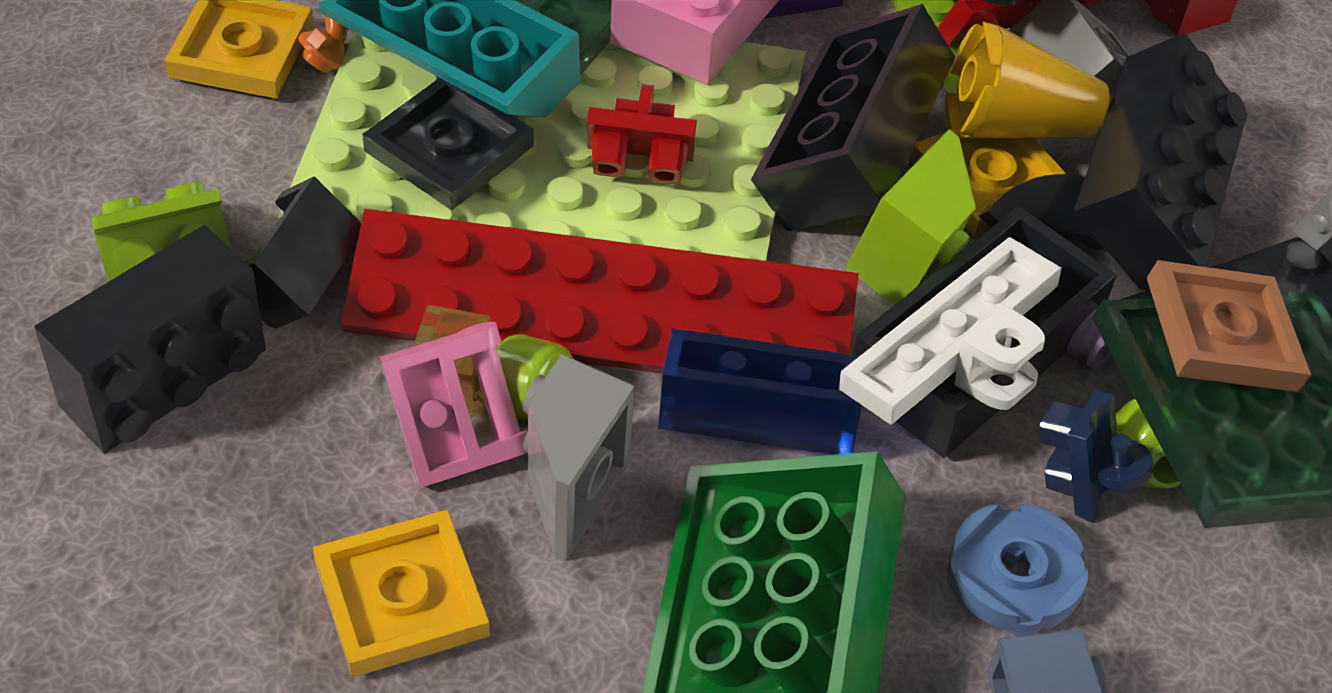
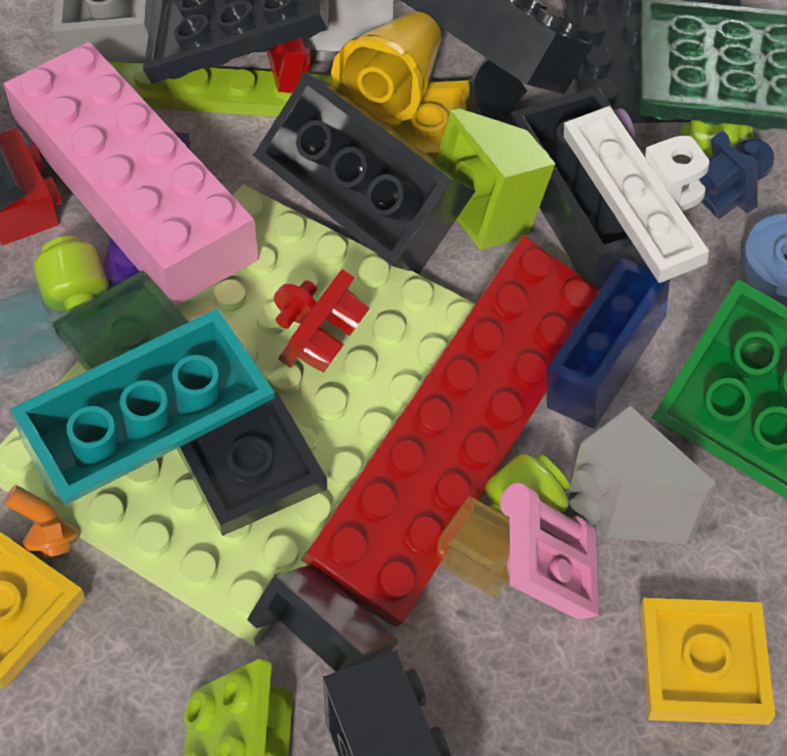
camera: 65 degrees left, 5 degrees up
(1227, 326) = (691, 44): nougat plate -> none

